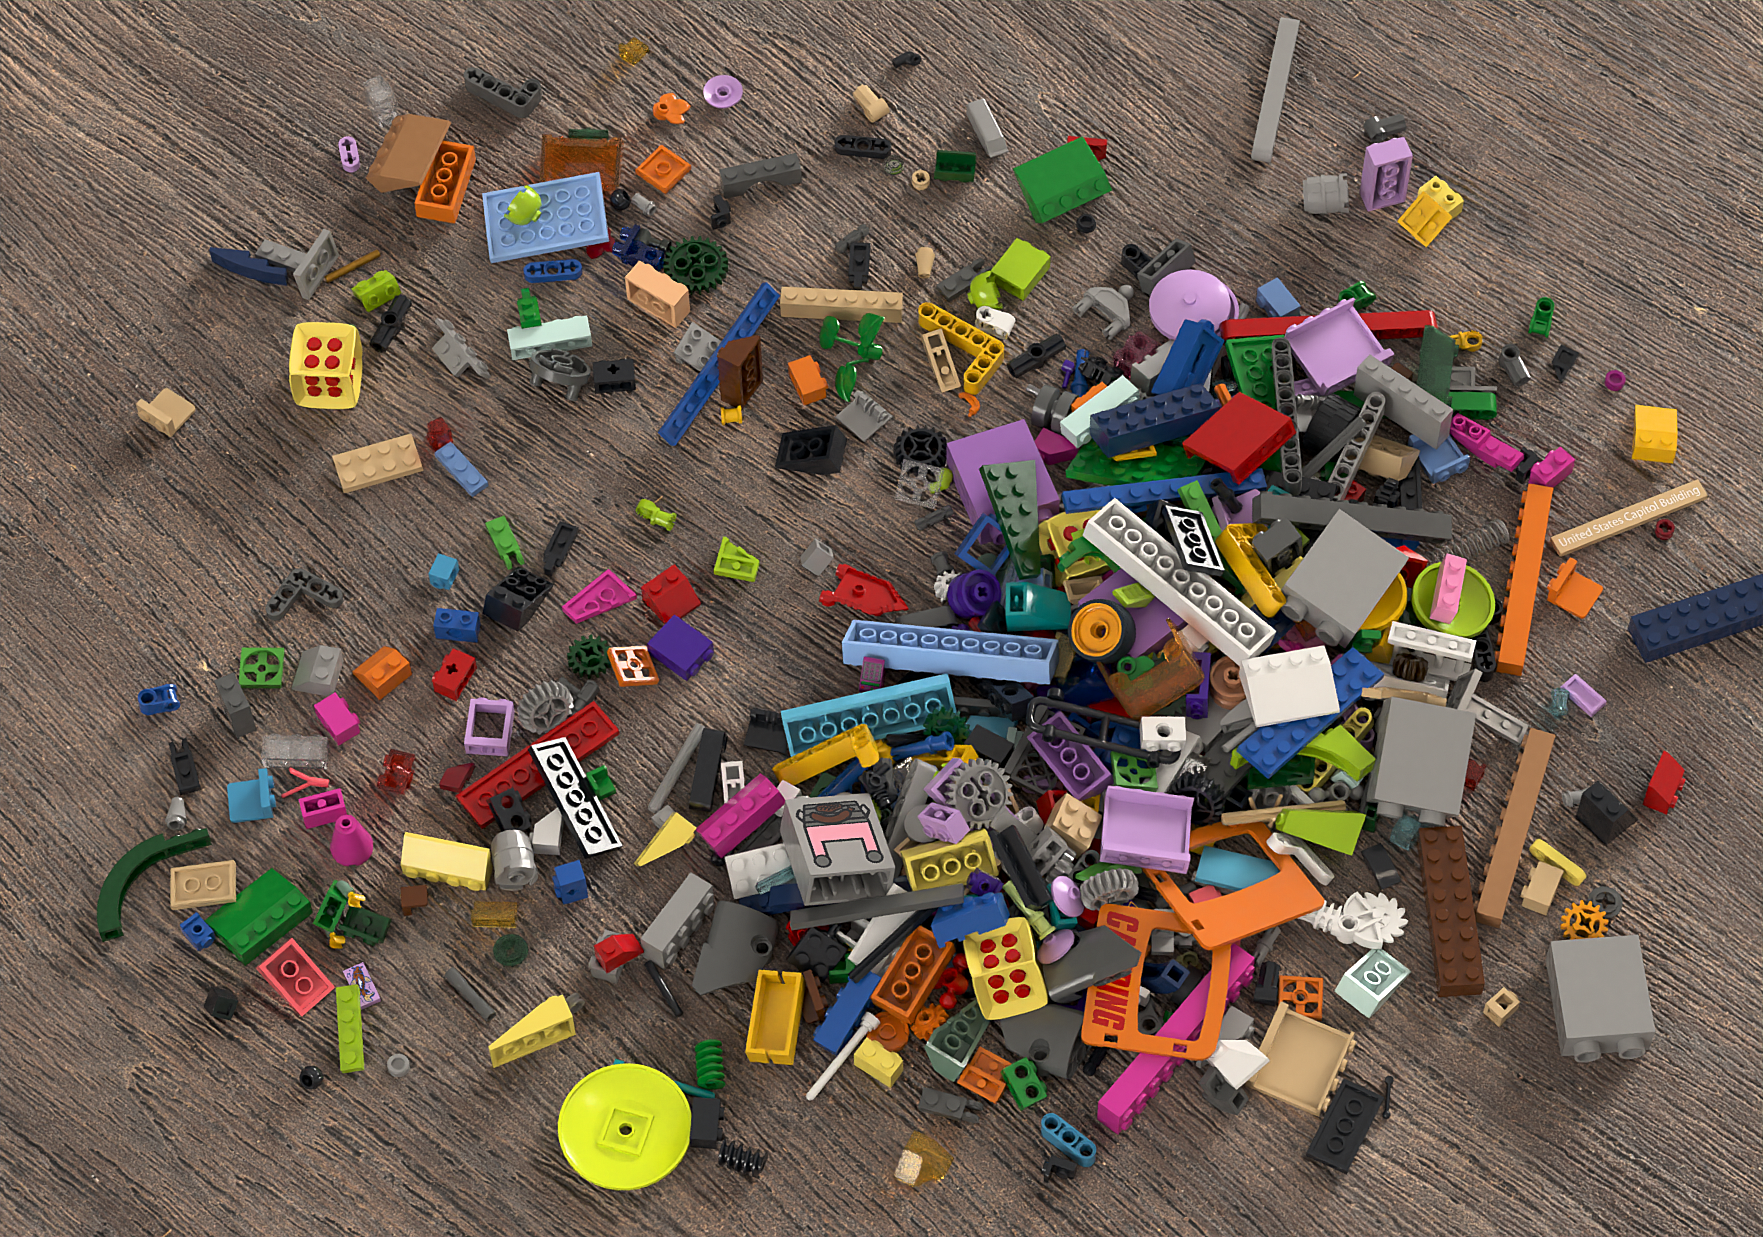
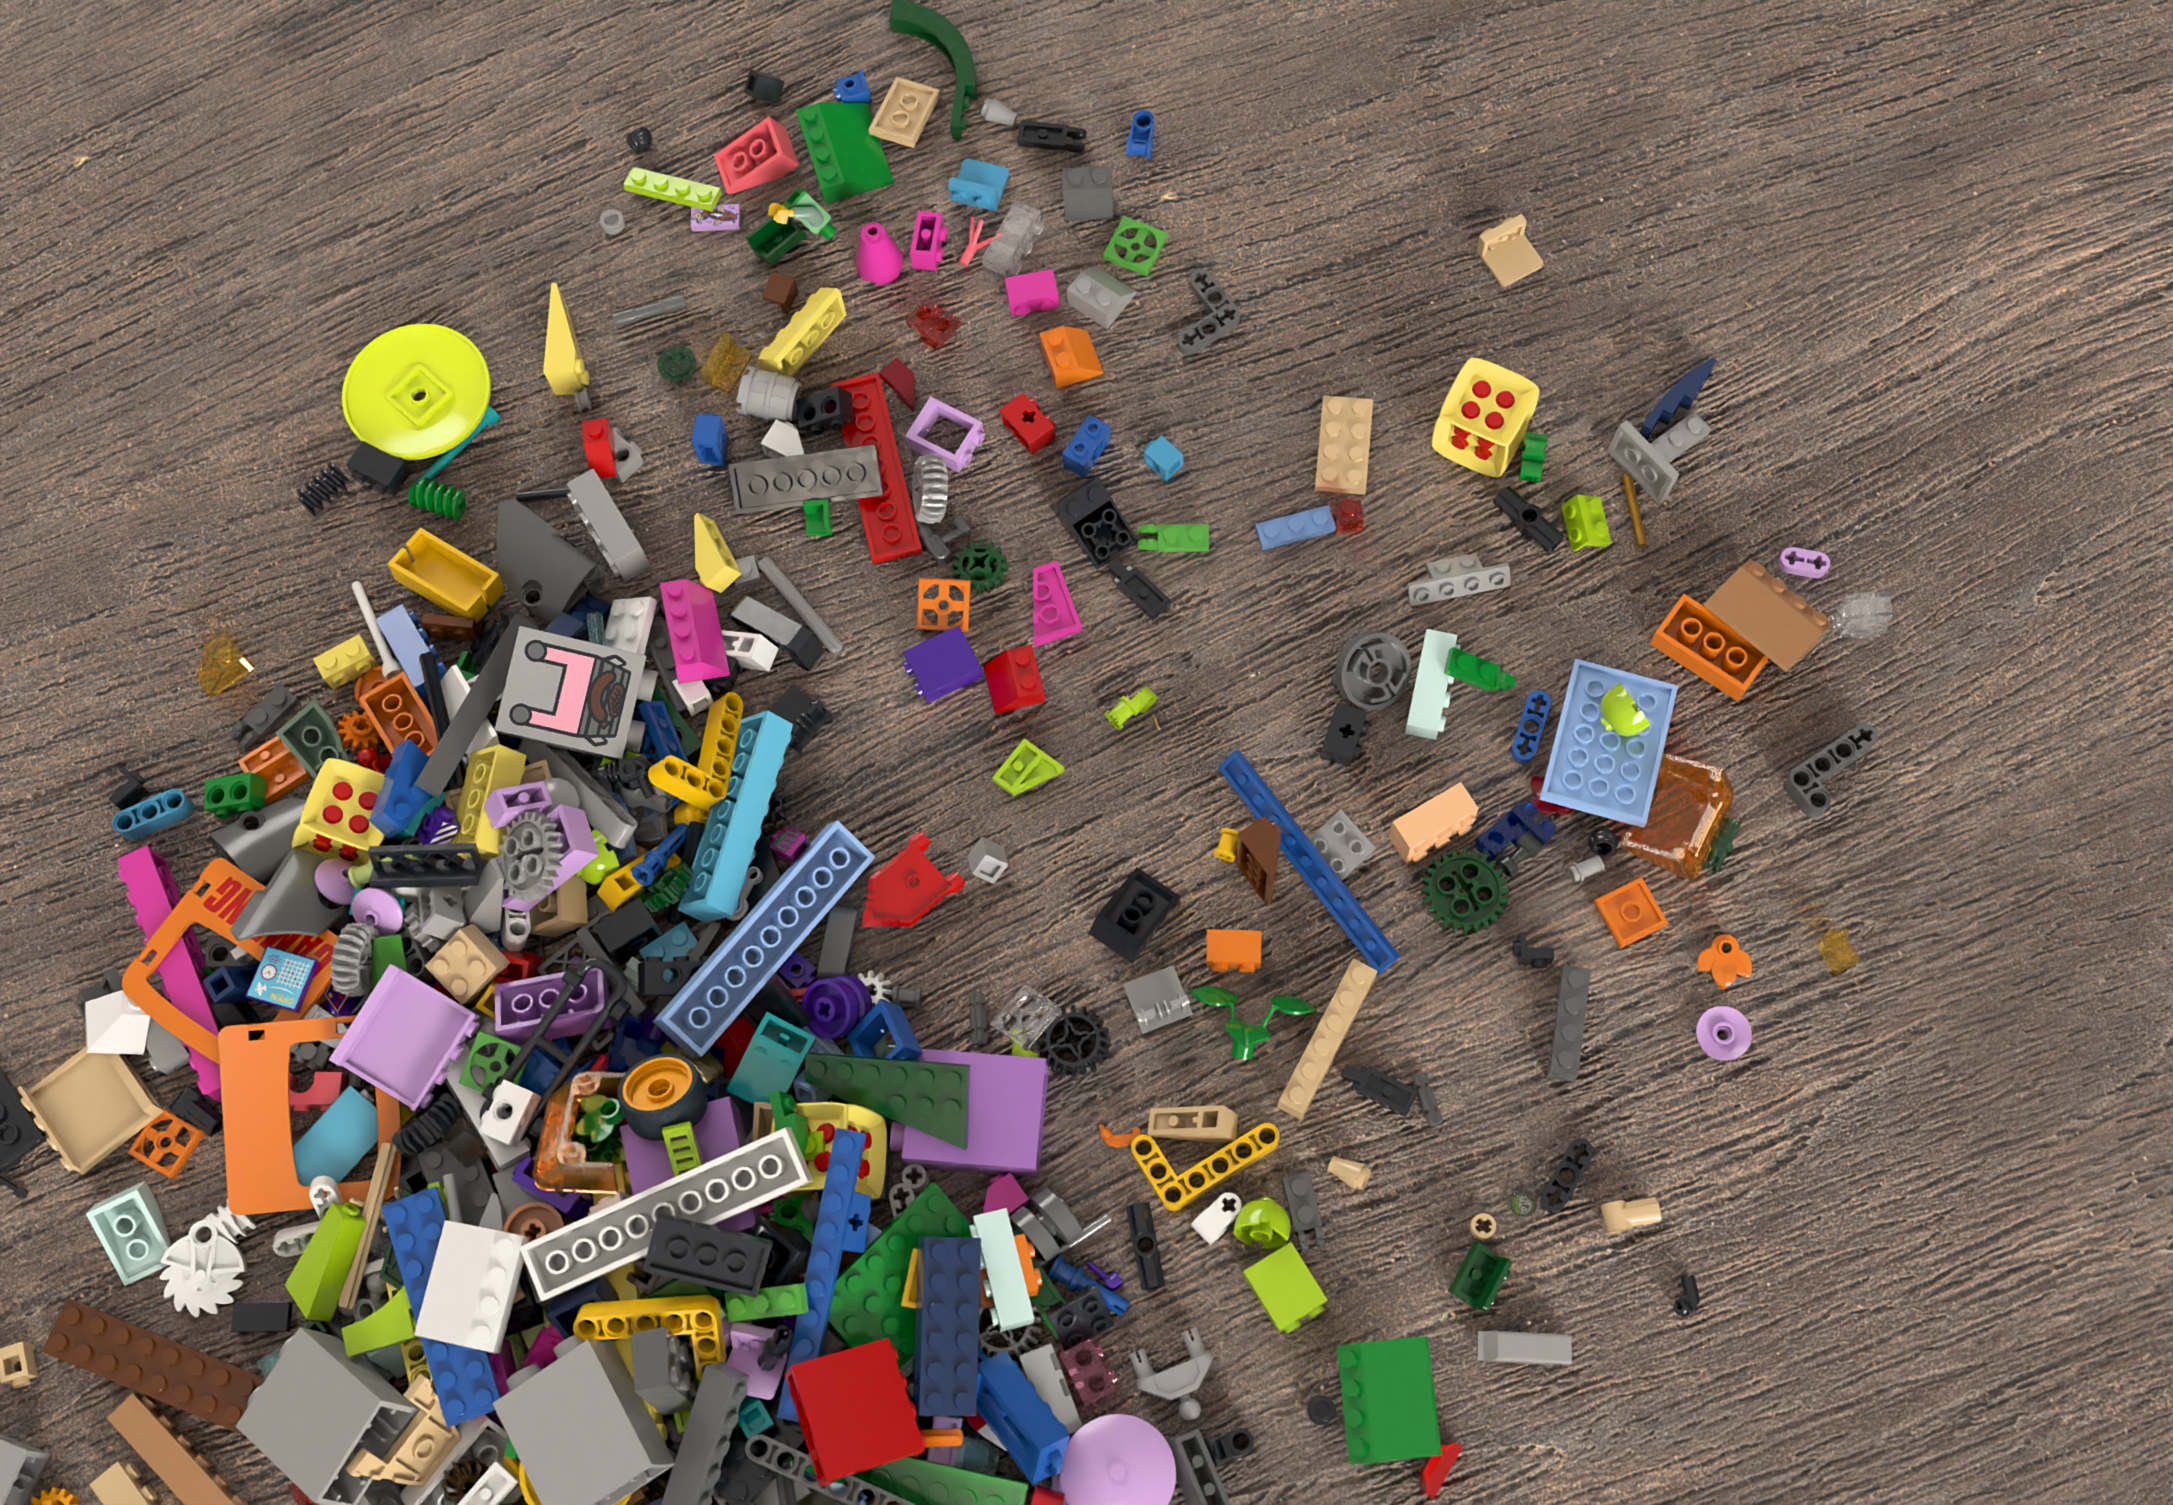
camera: 120 degrees right, 10 degrees up
(1150, 934) = (282, 979): none -> medium azure tile

